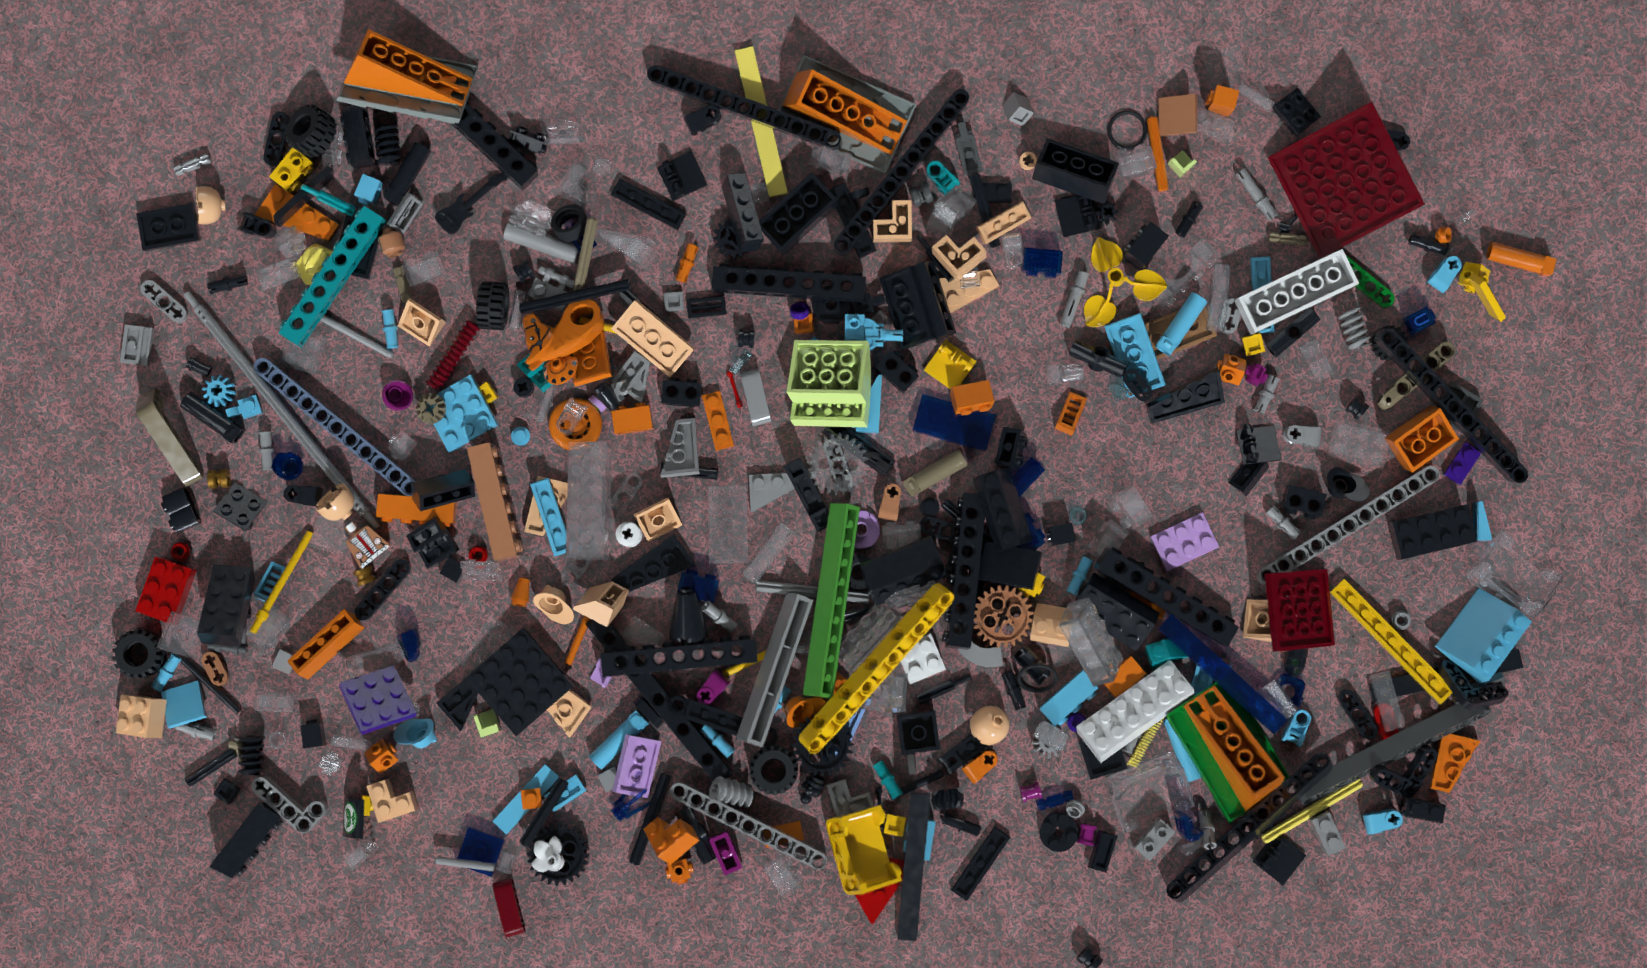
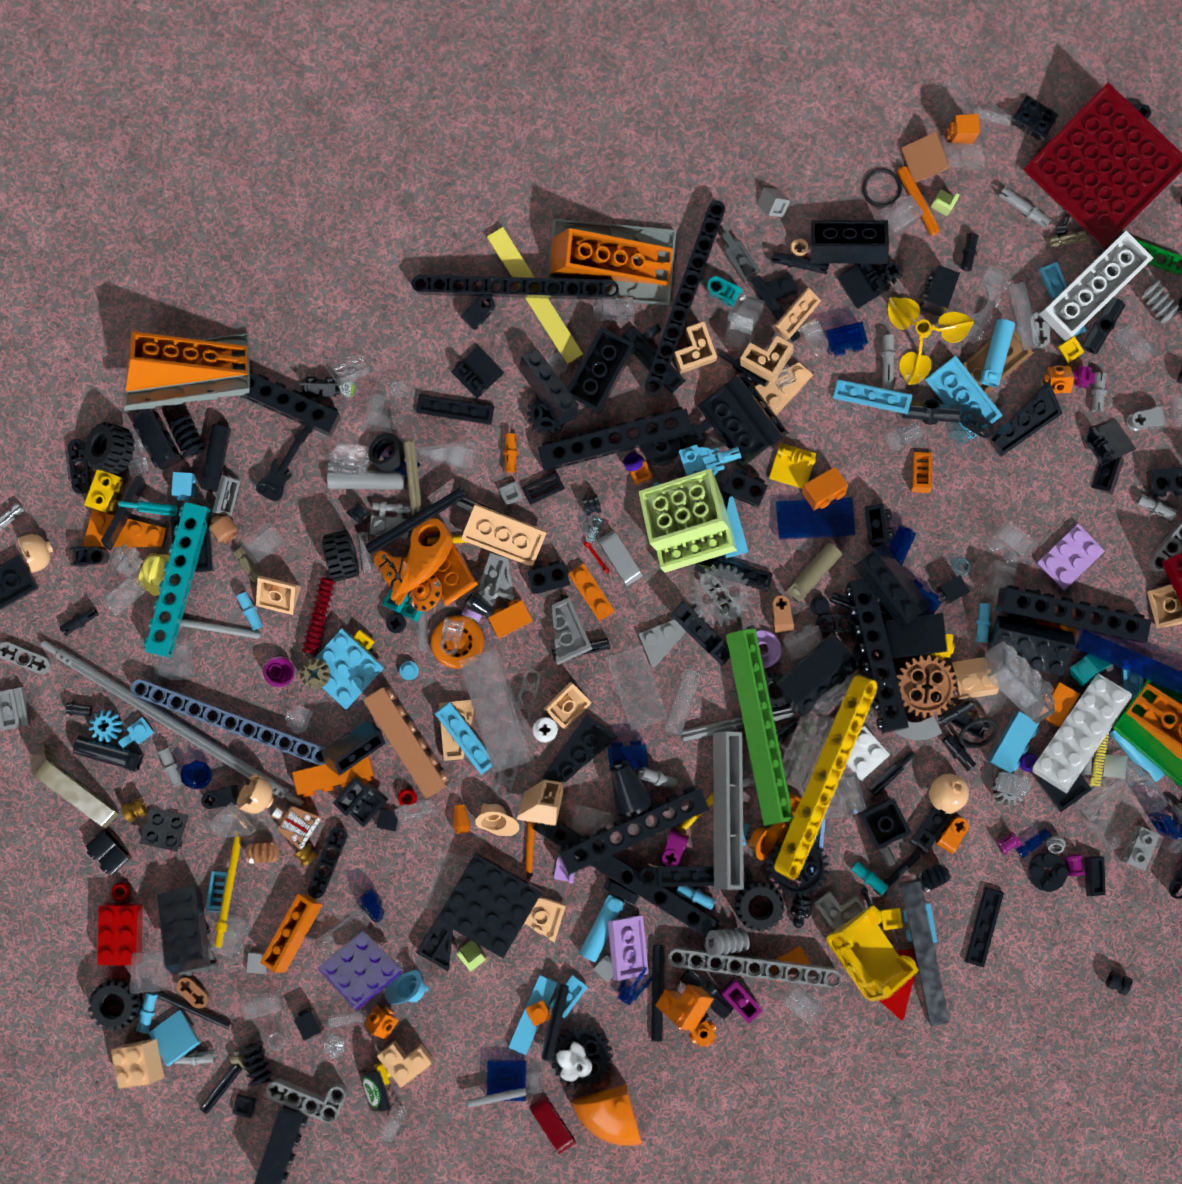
camera: 25 degrees left, 0 degrees up
(304, 522) = (231, 823): none -> clear wing
(324, 559) = (262, 853): none -> nougat gear
(555, 151) = (349, 388): none -> clear tile
(565, 918) = (609, 1116): none -> orange brick
(917, 198) = (710, 314): dark grey wheel -> none
(961, 824) = (953, 896): black axle -> none
(1022, 174) = (798, 262): none -> black pin
(1023, 649) = (957, 711): none -> black pin
(1047, 325) = (872, 396): none -> medium azure tile
(1157, 754) = (1115, 766): none -> white sticker

